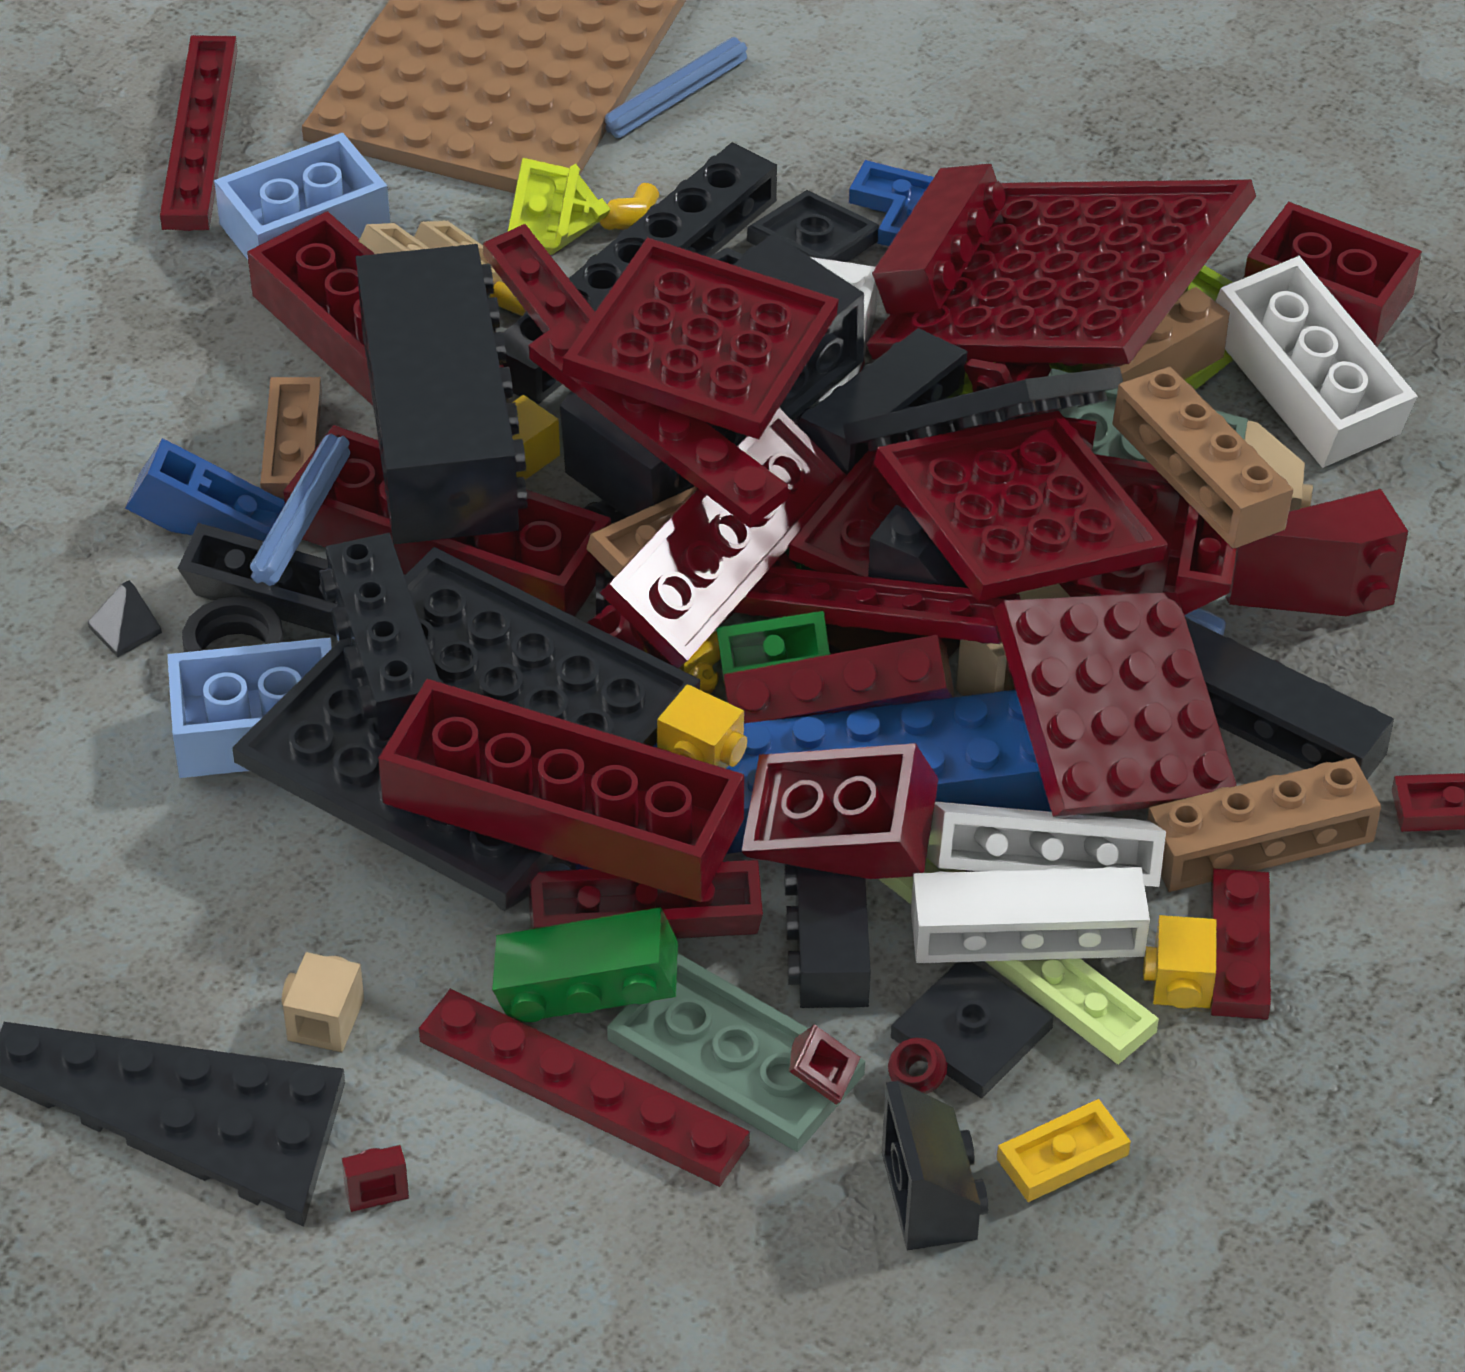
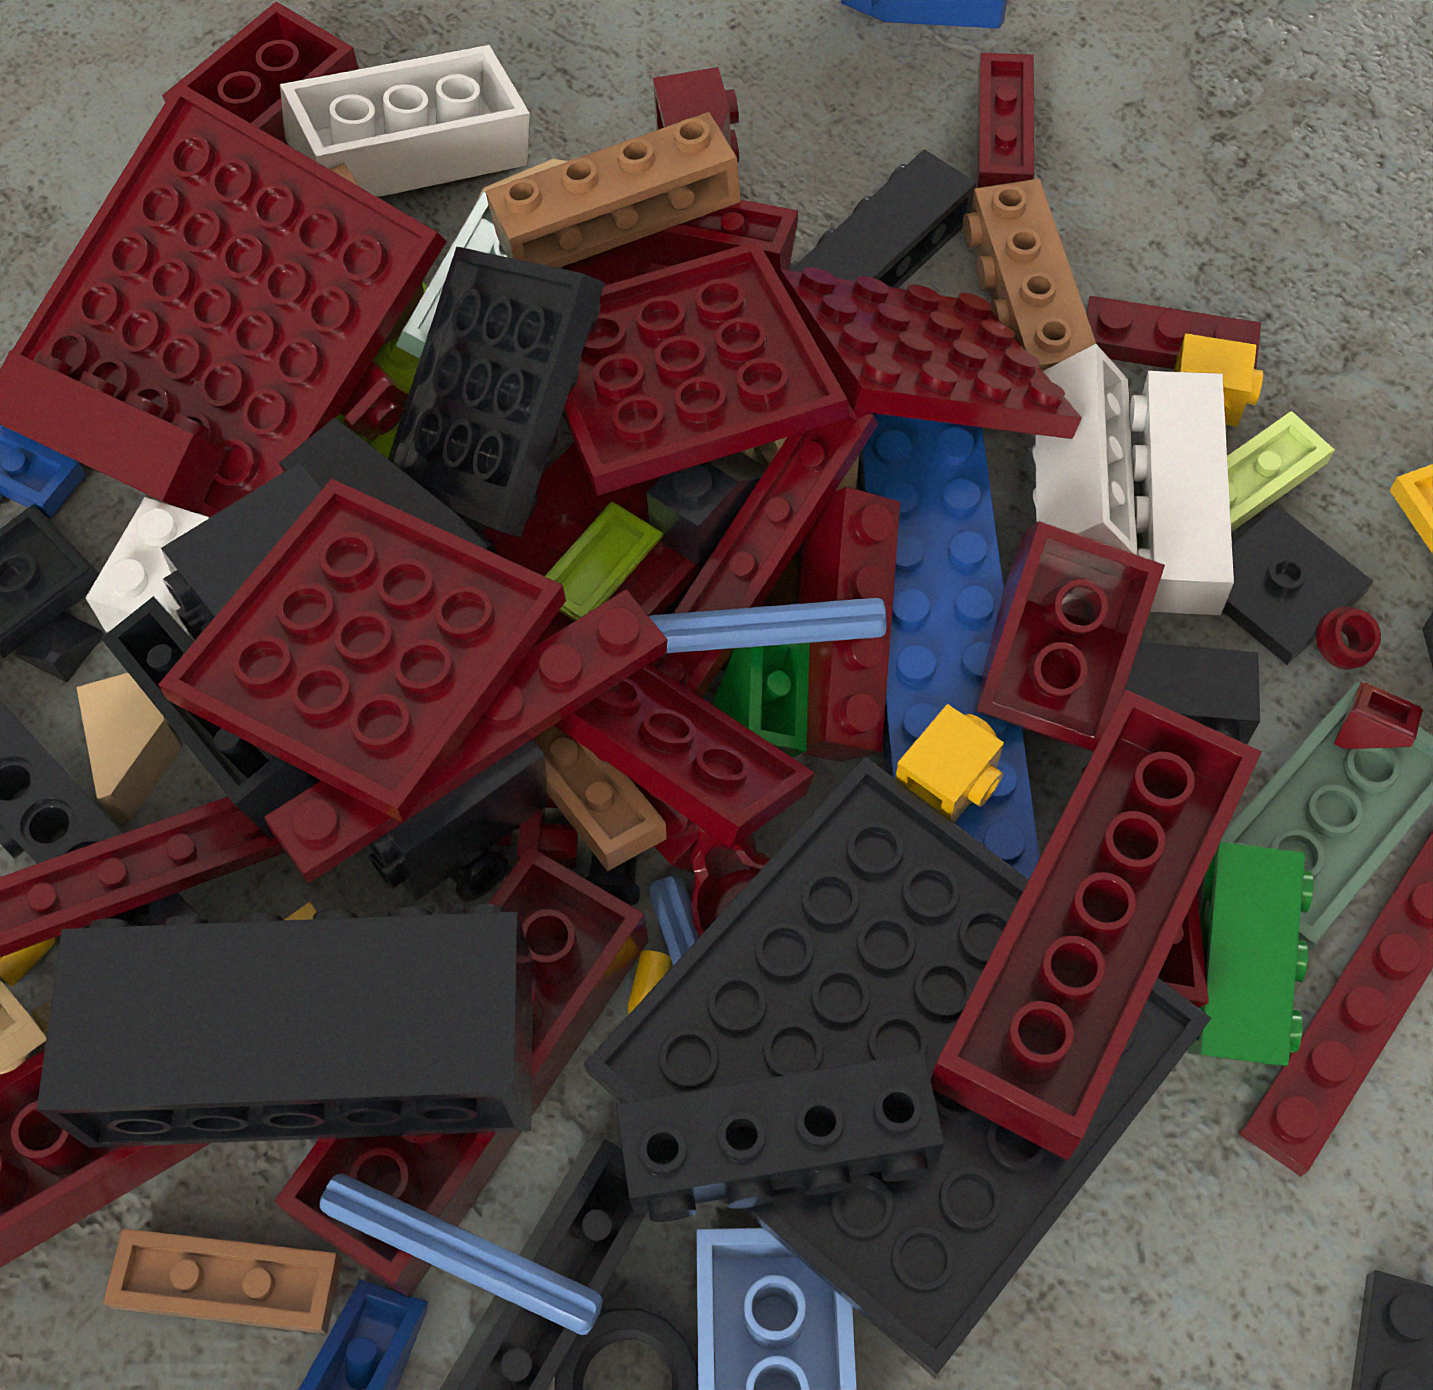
camera: 80 degrees left, 15 degrees up
(322, 1001) = (1274, 1289): tan brick -> none
(805, 606) = (773, 625): none -> medium blue axle
(841, 510) = (602, 559): none -> lime tile

